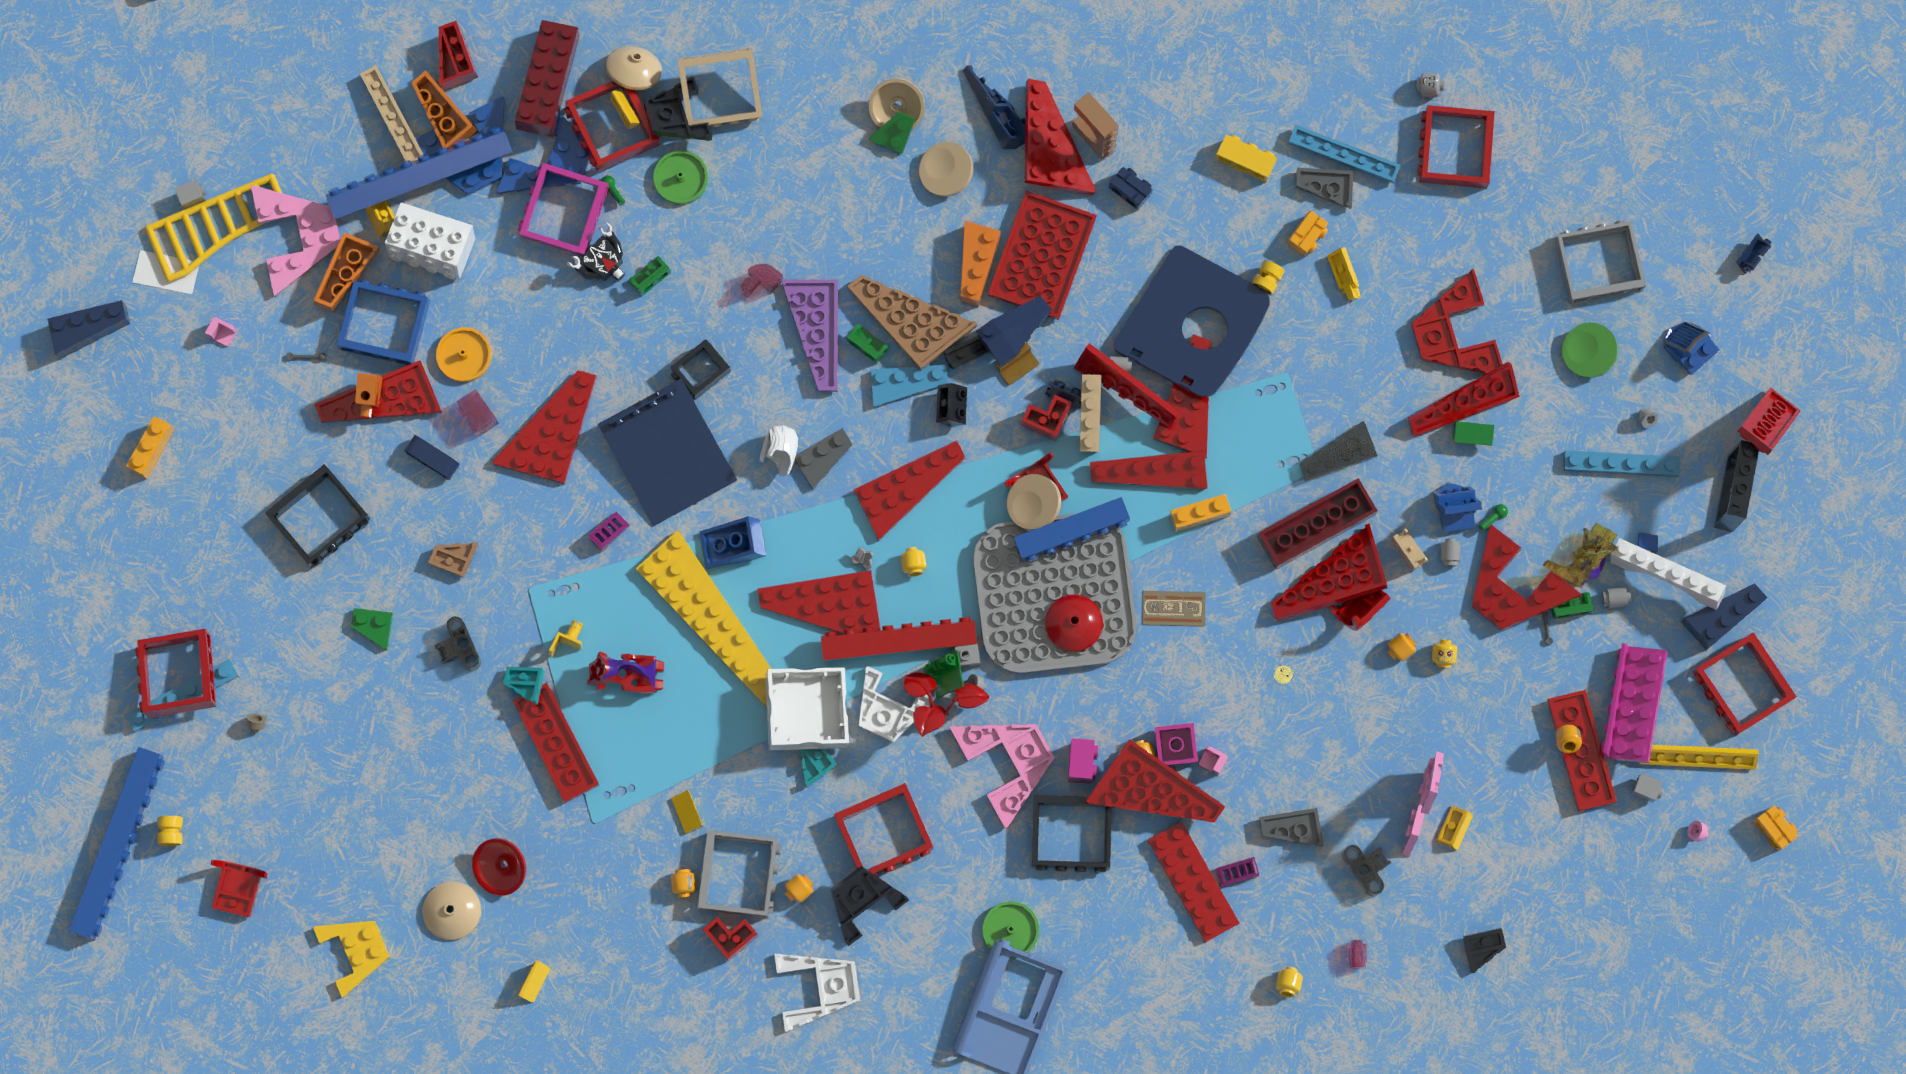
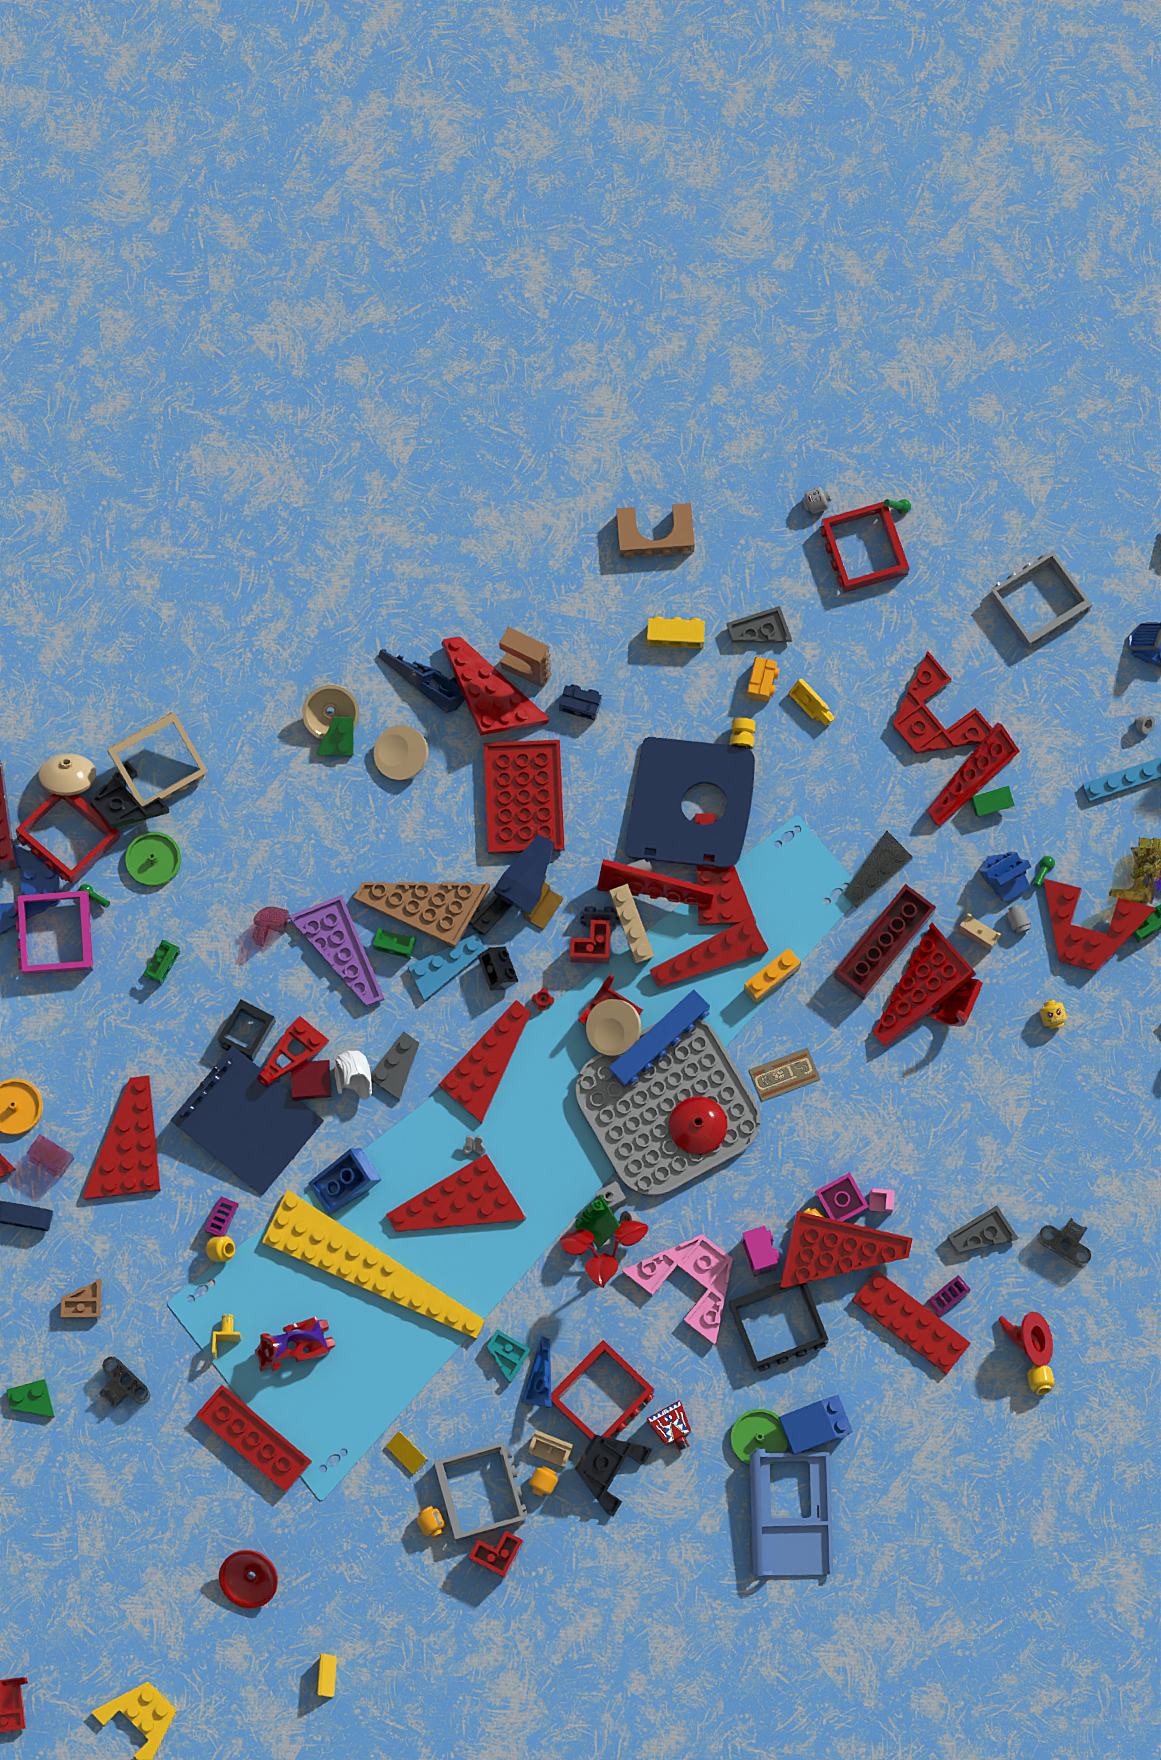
camera: 20 degrees left, 5 degrees down
(462, 919) = (233, 1644): tan dish -> none
(524, 682) = (200, 1392): teal wing -> none
(595, 559) = (220, 1249): none -> yellow head
(601, 259) = (109, 964): black torso -> none
(624, 109) = (74, 816): yellow slope -> none
(740, 438) = (311, 1080): none -> dark red tile
(752, 396) = (304, 1034): none -> red plate
(806, 709) = (480, 1308): white tile -> none
(817, 862) = (550, 1448): none -> tan hinge
(831, 799) = (539, 1382): none -> blue wing
(835, 981) = (617, 1559): white wing -> none
(883, 714) = (555, 1284): white wing -> none
(898, 639) = (539, 1207): red brick -> none
(913, 562) = (523, 1129): yellow head -> none
(935, 886) = (671, 1425): none -> torso
(976, 446) = (543, 993): none -> red plate
(978, 255) = (464, 821): orange wedge -> none
(1065, 939) = (815, 1425): none -> blue slope
(1283, 674) = (912, 1094): clear tile -> none
(1286, 72) = (634, 544): none -> medium nougat arch
(1298, 941) = (1032, 1337): none -> red piece
(1344, 154) = (764, 594): dark azure plate -> none
(1357, 954) = (1092, 1326): clear pink brick -> none
(1401, 647) = (1011, 1024): light orange head -> none
(1428, 793) = (1096, 1151): bright pink wing -> none
(1454, 827) = (1131, 1172): yellow slope -> none
(1509, 122) = (903, 506): none -> green bar
(1548, 641) = (1143, 964): dark grey hinge -> none
(1590, 350) = (1066, 683): bright green piece -> none

